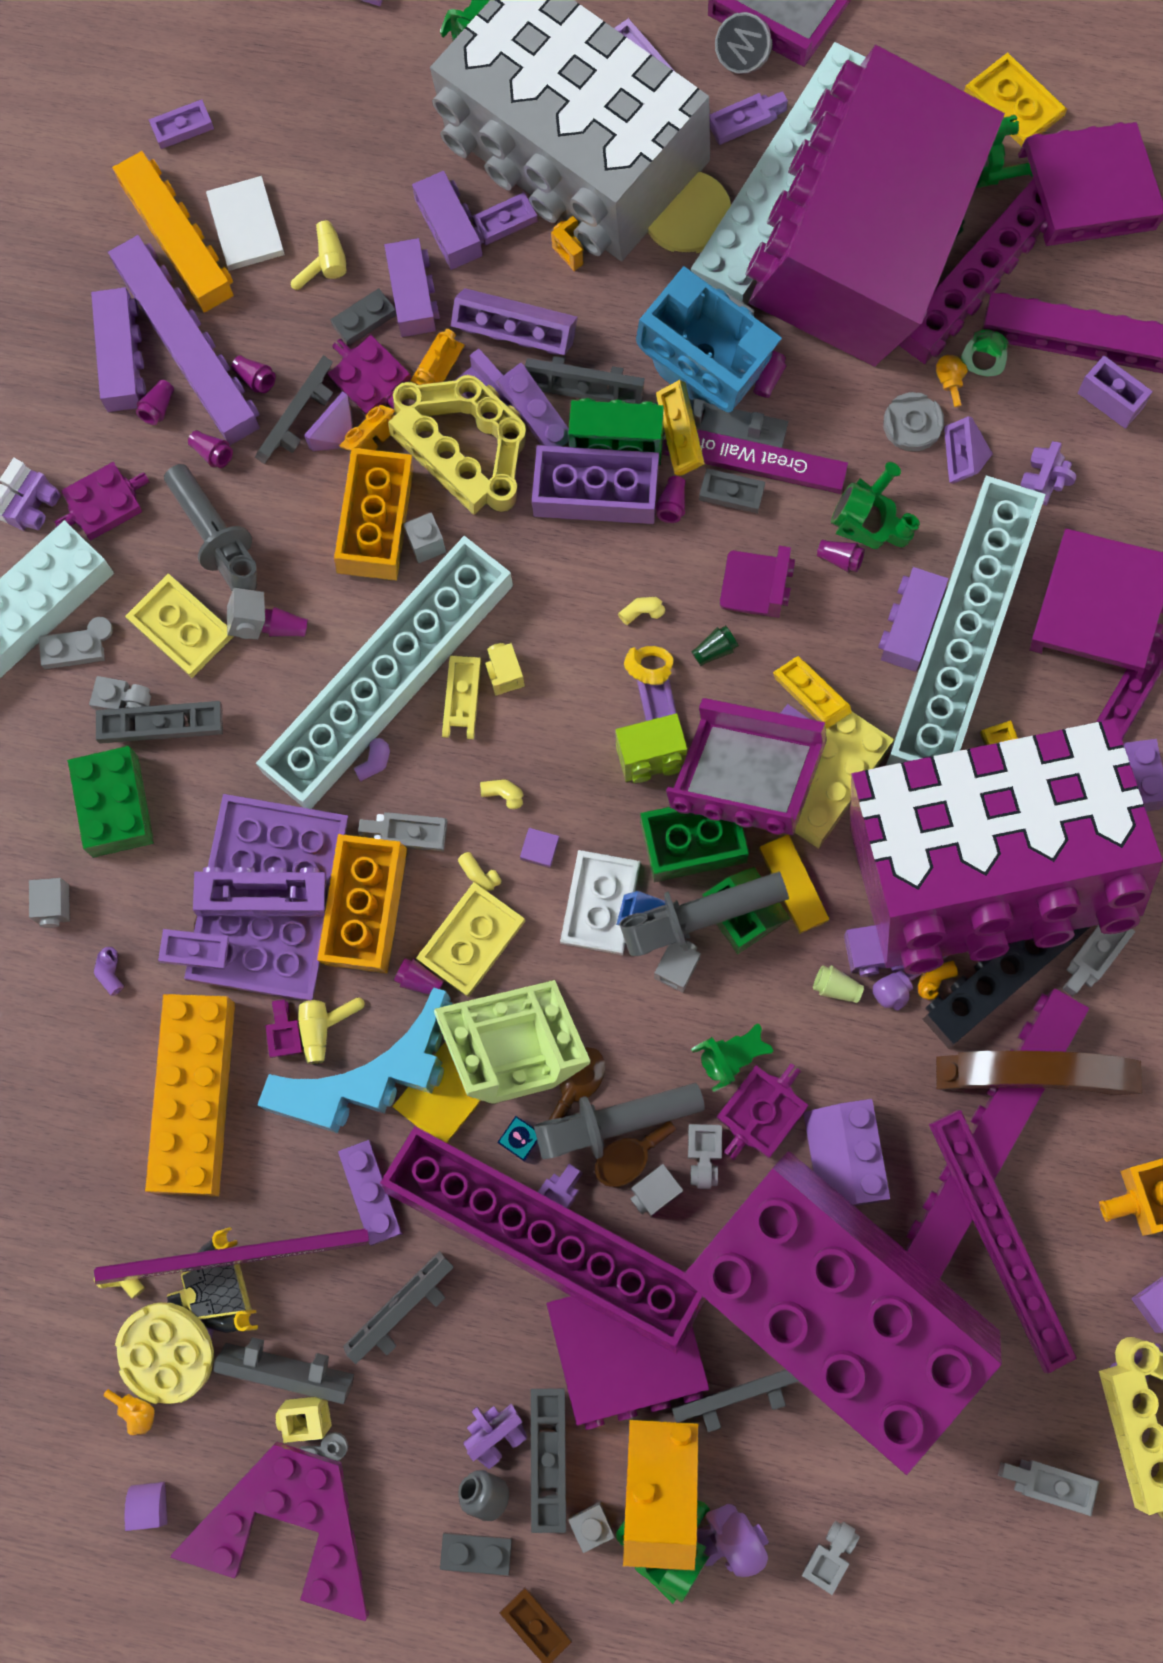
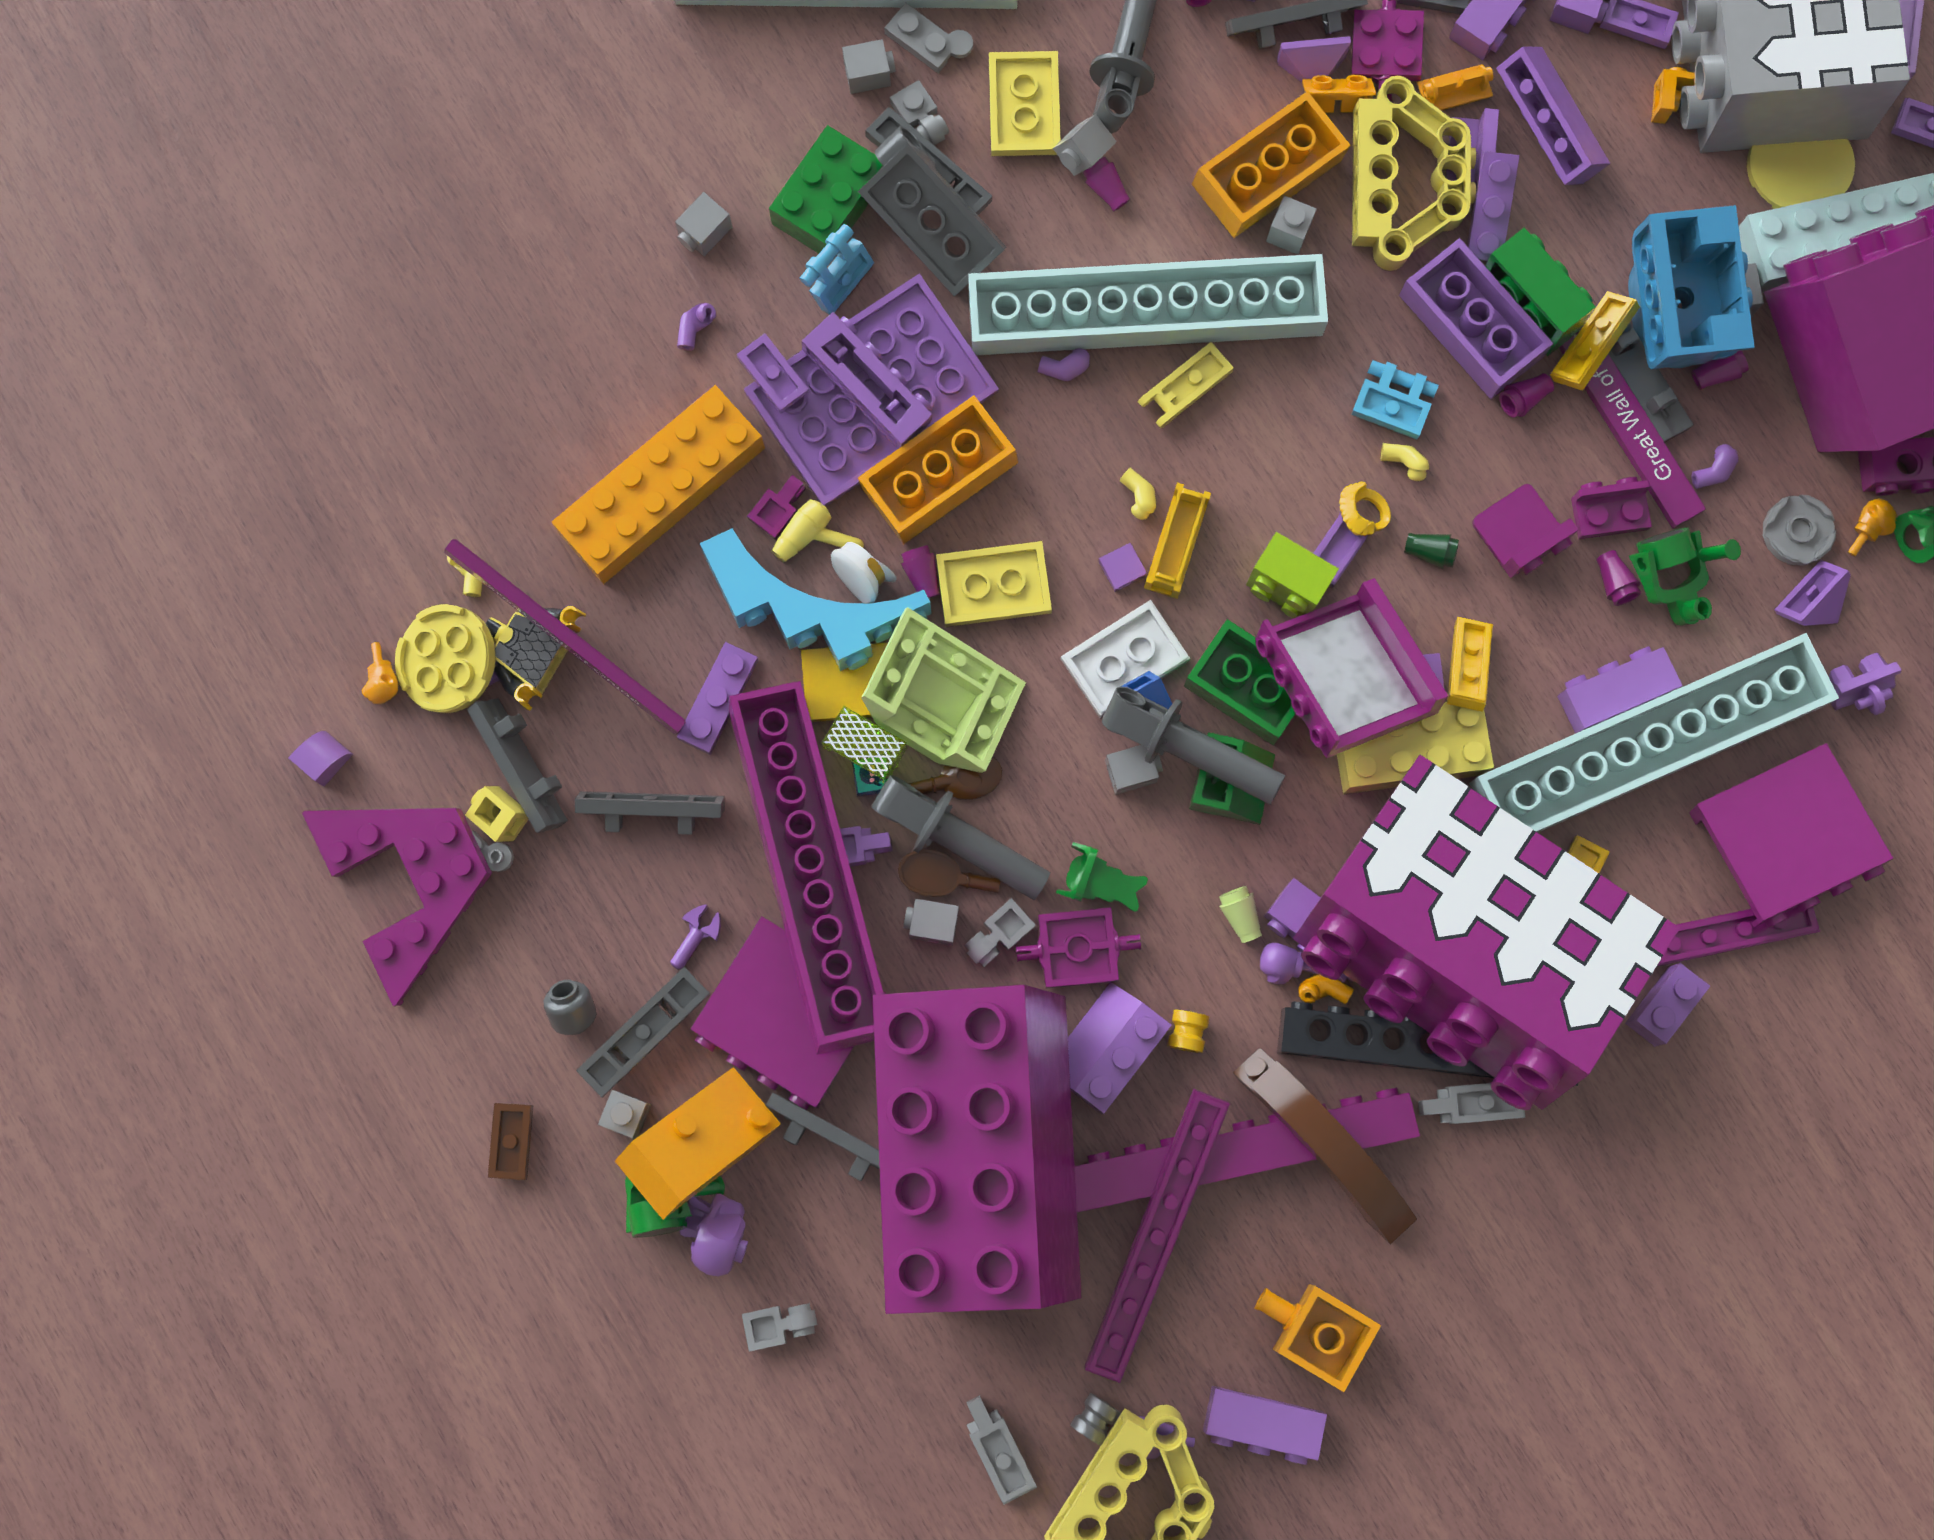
camera: 40 degrees right, 5 degrees up
(55, 699) = (868, 66): none -> light grey brick
(163, 746) = (912, 186): none -> dark grey hinge
(173, 853) = (842, 275): none -> medium azure plate
(379, 1017) = (860, 571): none -> white piece
(410, 830) = (1033, 448): light grey hinge -> none
(475, 1553) = (522, 1044): dark grey plate -> none
(476, 874) = (1050, 538): light yellow arm -> none
(490, 1429) = (624, 964): medium lavender hips -> none
(496, 1123) = (865, 744): none -> clear neon green panel
(504, 668) = (1243, 395): light yellow brick -> none
(514, 1361) = (695, 935): none -> medium lavender bar
(556, 798) = (1177, 541): none -> yellow container
(585, 383) = (1558, 226): dark grey hinge -> none
(601, 587) = (1393, 408): none -> medium azure plate
(732, 491) = (1583, 436): dark grey plate -> none
(793, 517) = (1611, 508): none -> magenta bracket
(803, 899) = (1293, 801): yellow tile -> none
(832, 432) = (1724, 464): none -> medium lavender arm
(883, 1092) = (1188, 1031): none -> yellow wheel
(1086, 1398) = (1095, 1418): none -> flat silver wheel

